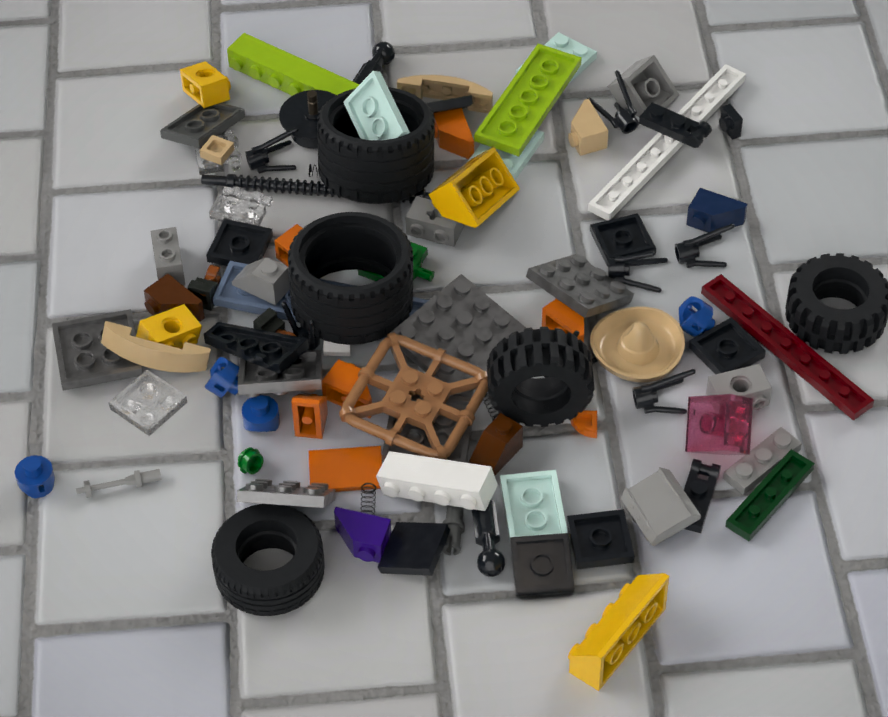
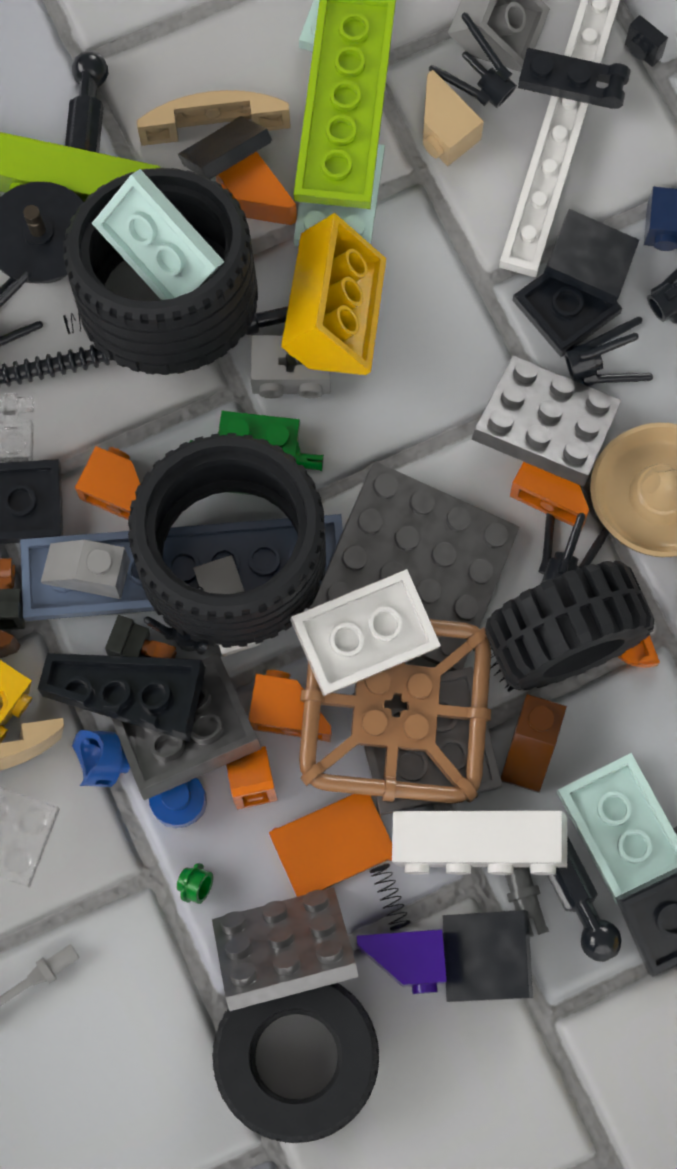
camera: 20 degrees left, 25 degrees up
(412, 344) = (365, 632): none -> white plate
(647, 216) = (591, 256): none -> black tile

